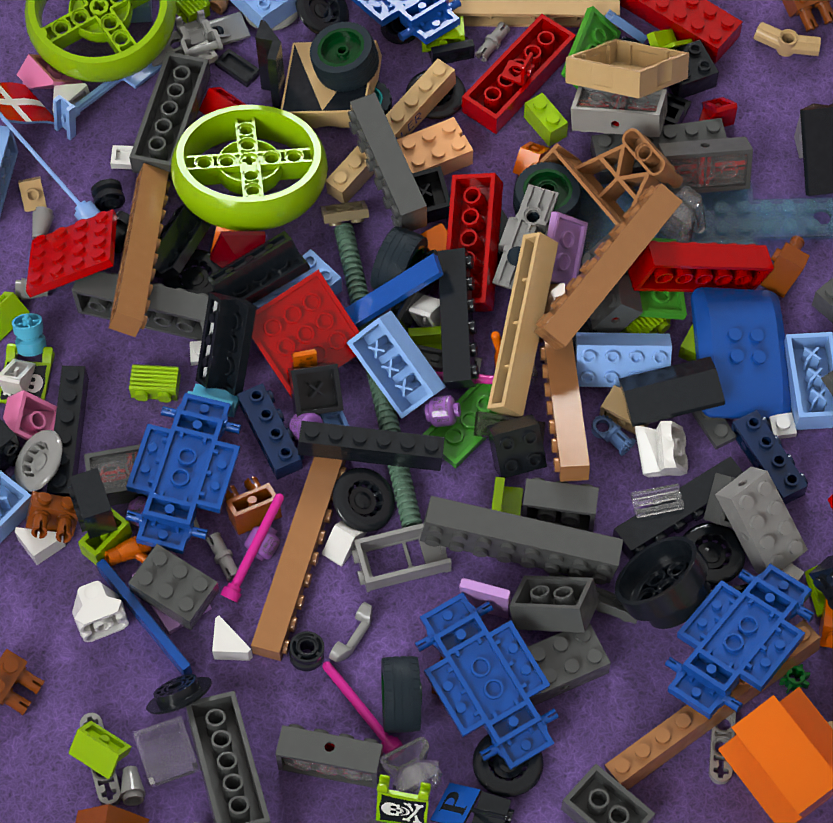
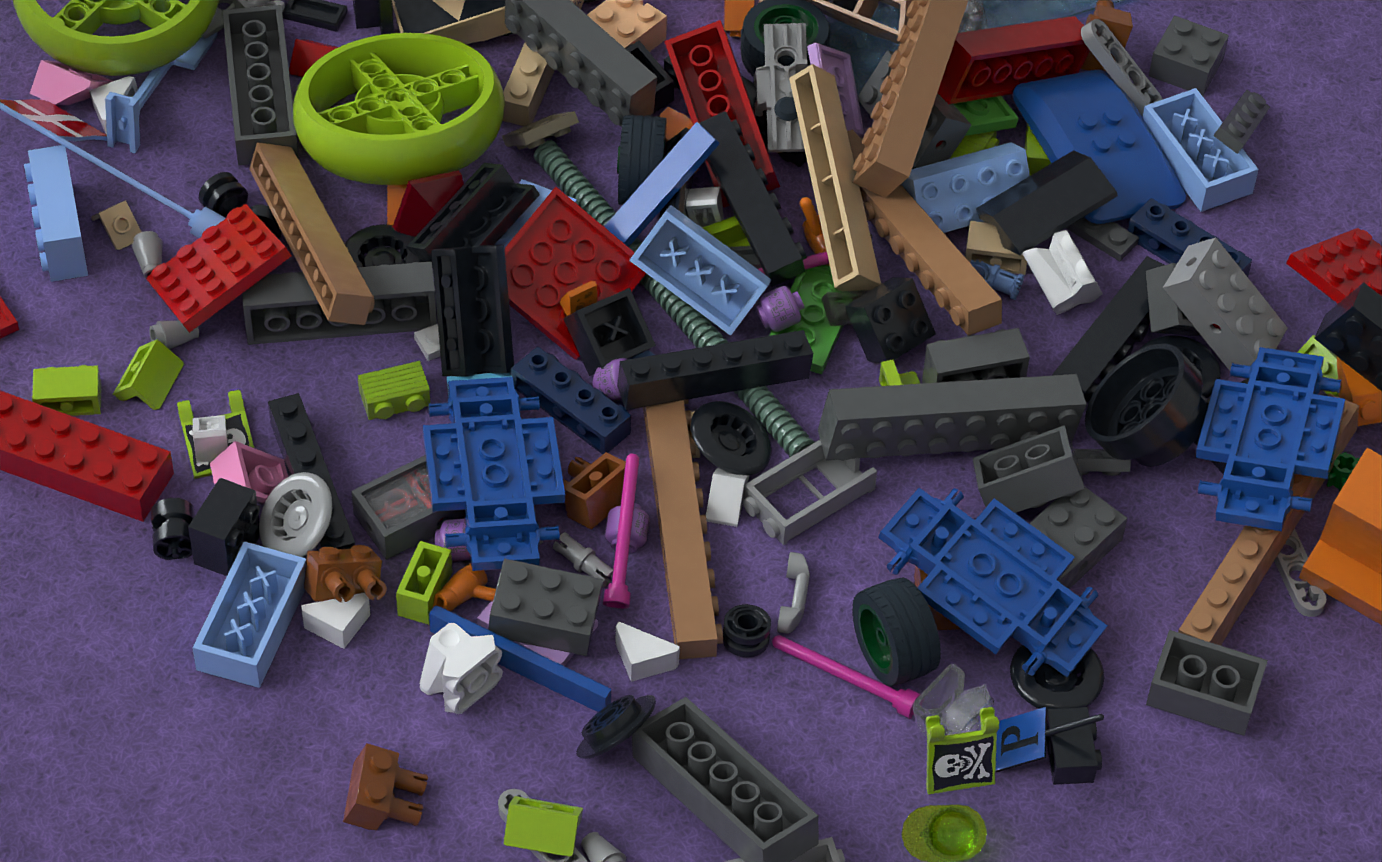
camera: 25 degrees left, 10 degrees down
(29, 334) = (202, 375): medium azure wheel -> none
(91, 503) = (402, 533): black brick -> none
(120, 157) = (218, 150): white plate -> none
(166, 751) = (631, 798): clear piece -> none
(178, 242) = (352, 212): black slope -> none
(329, 755) = (842, 733): dark grey brick -> none
(479, 593) = (942, 478): lavender tile -> none
(676, 494) = (1084, 323): clear tile -> none
(783, 425) = (1187, 208): white plate -> none
(788, 295) = (1103, 43): none -> light grey beam

